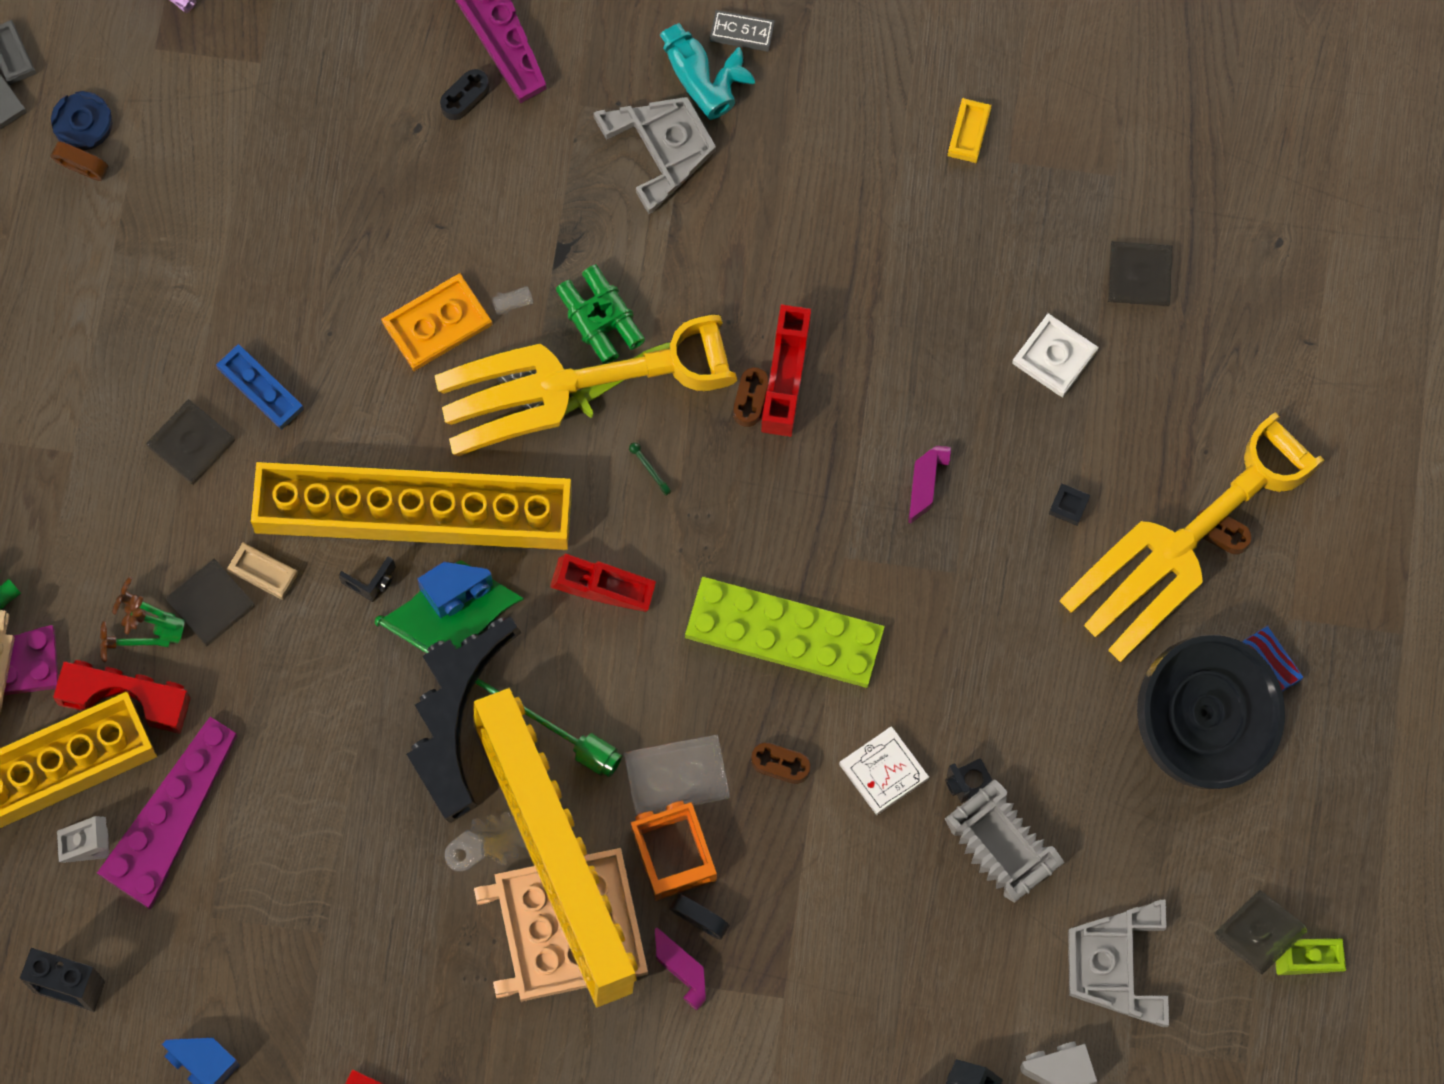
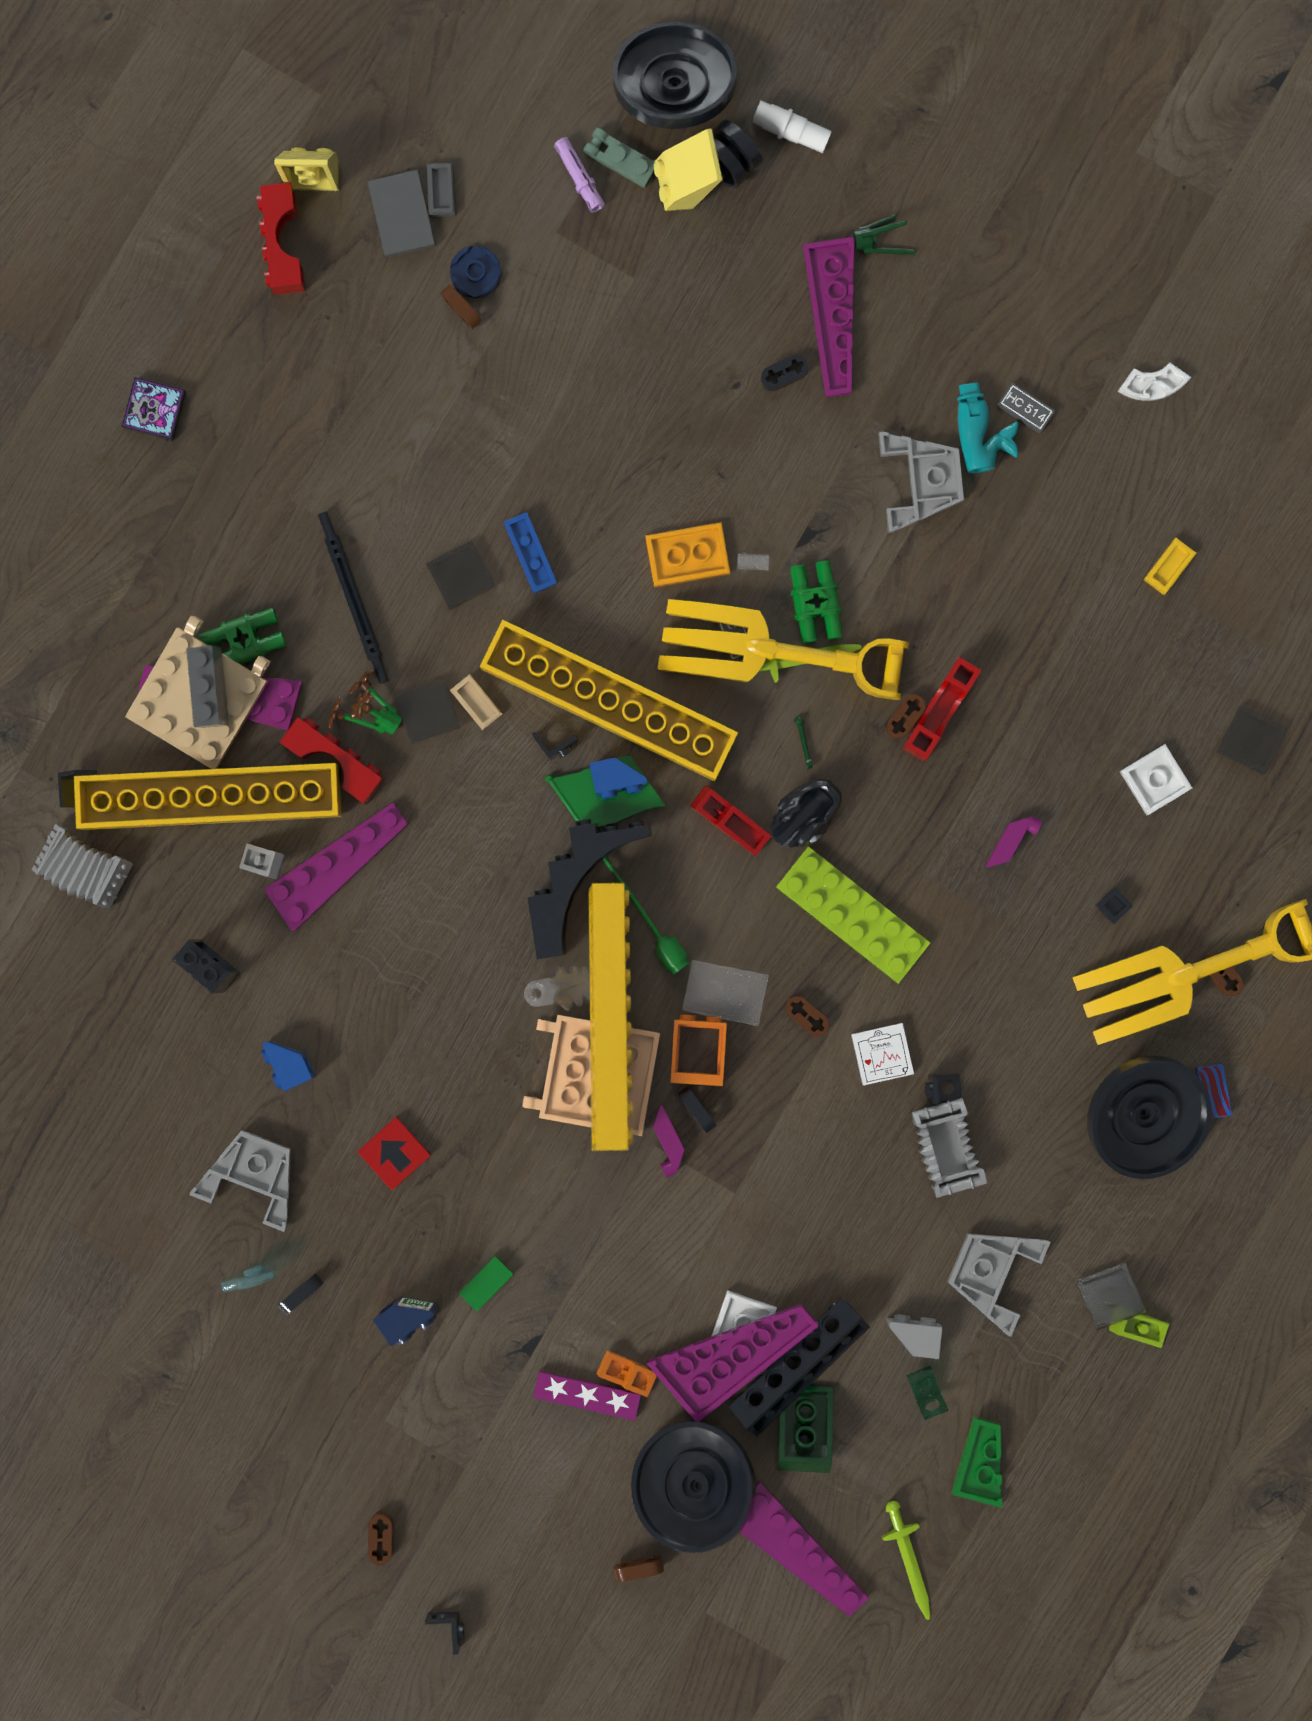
camera: 25 degrees right, 15 degrees up
(77, 512) = (353, 597): none -> black axle
(683, 539) = (806, 813): none -> black hair

